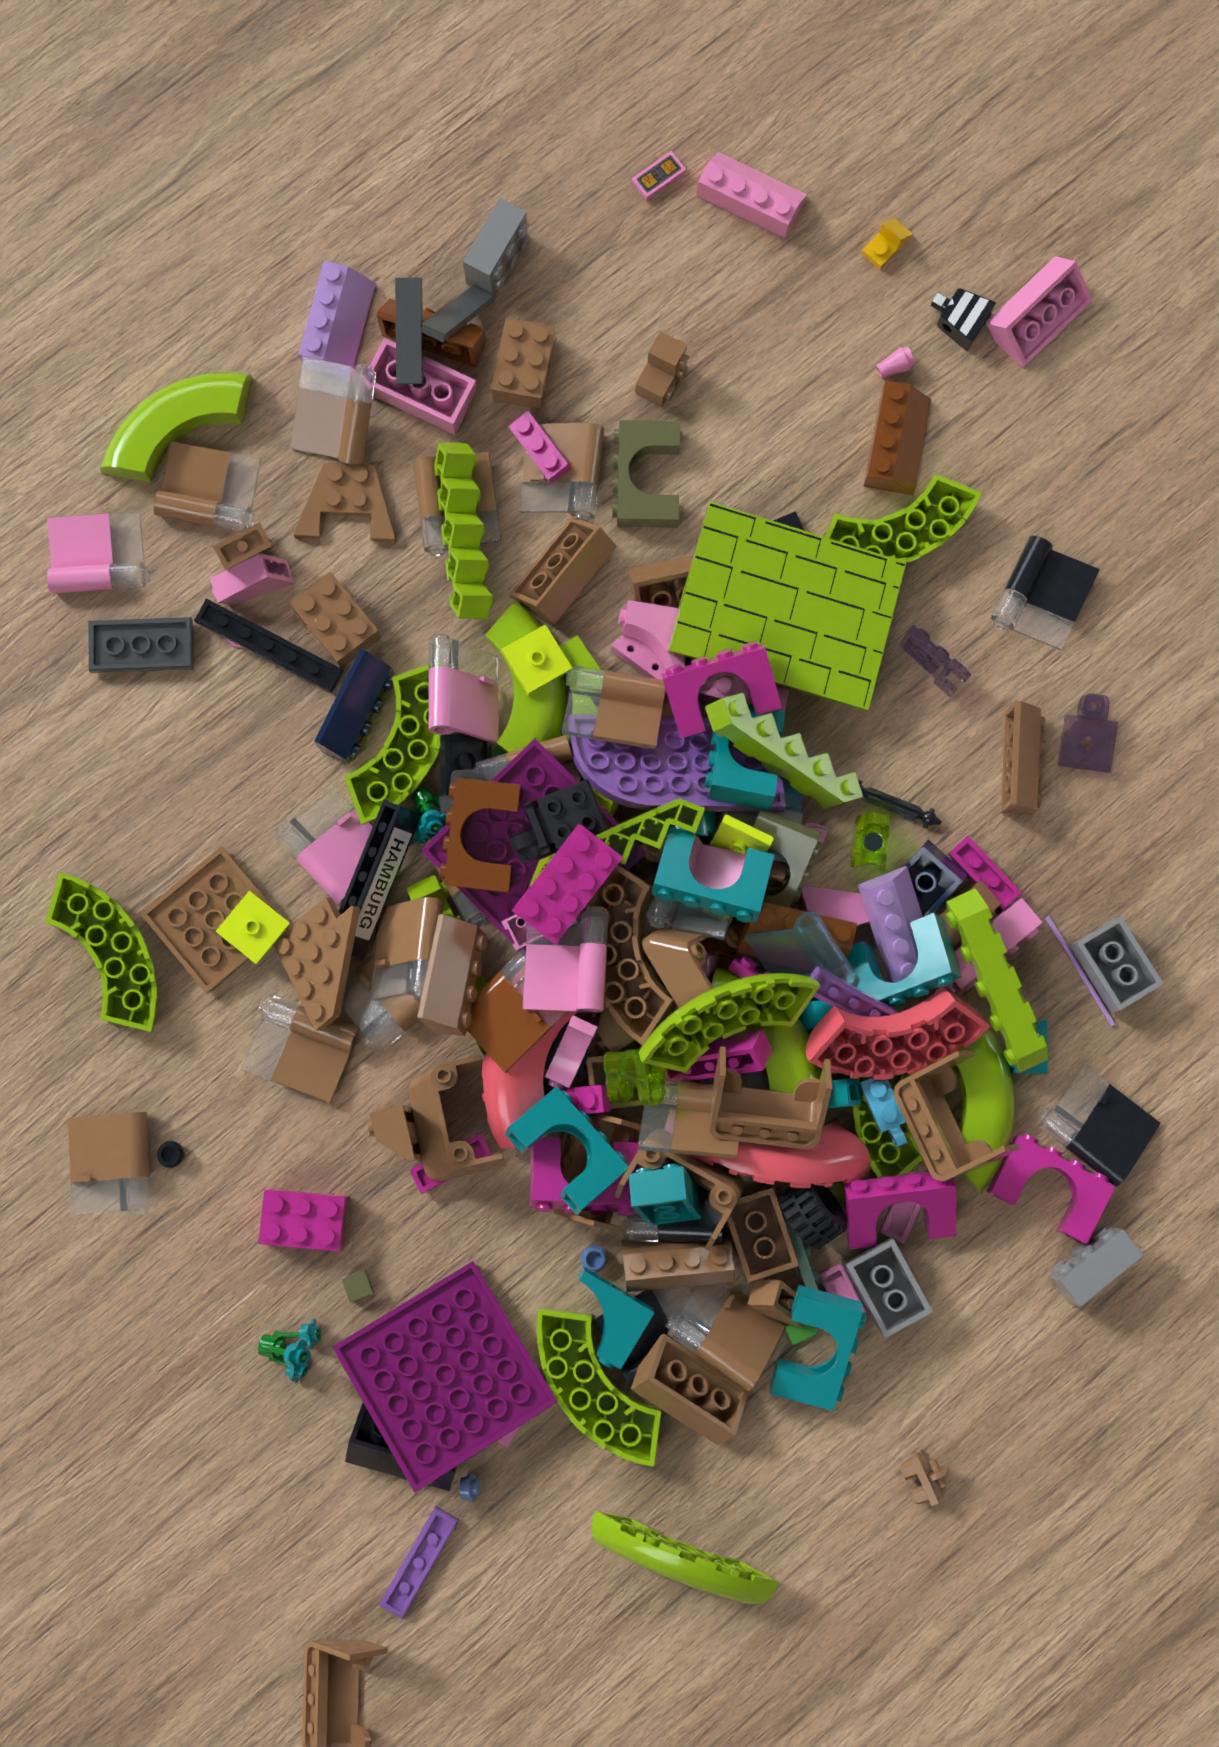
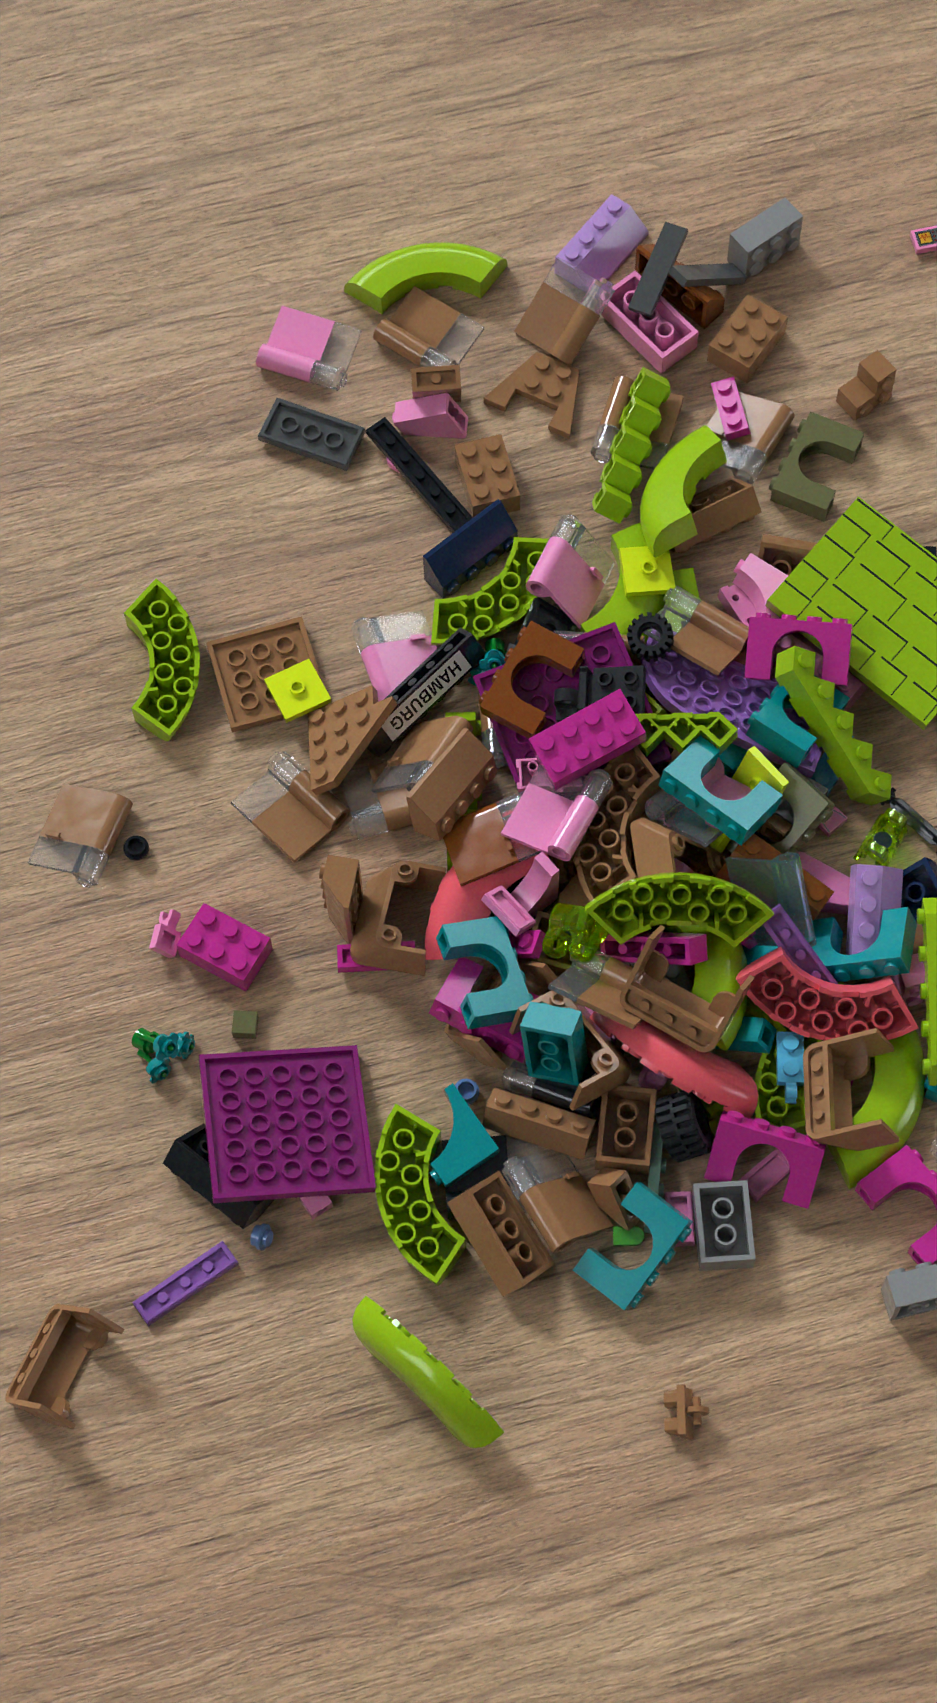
camera: 30 degrees right, 15 degrees down
(243, 1234) = (165, 936): none -> bright pink plate
(523, 562) = (671, 487): none -> lime brick
(559, 739) = (650, 622): none -> black tyre
(561, 1078) = (508, 910): none -> bright pink tile

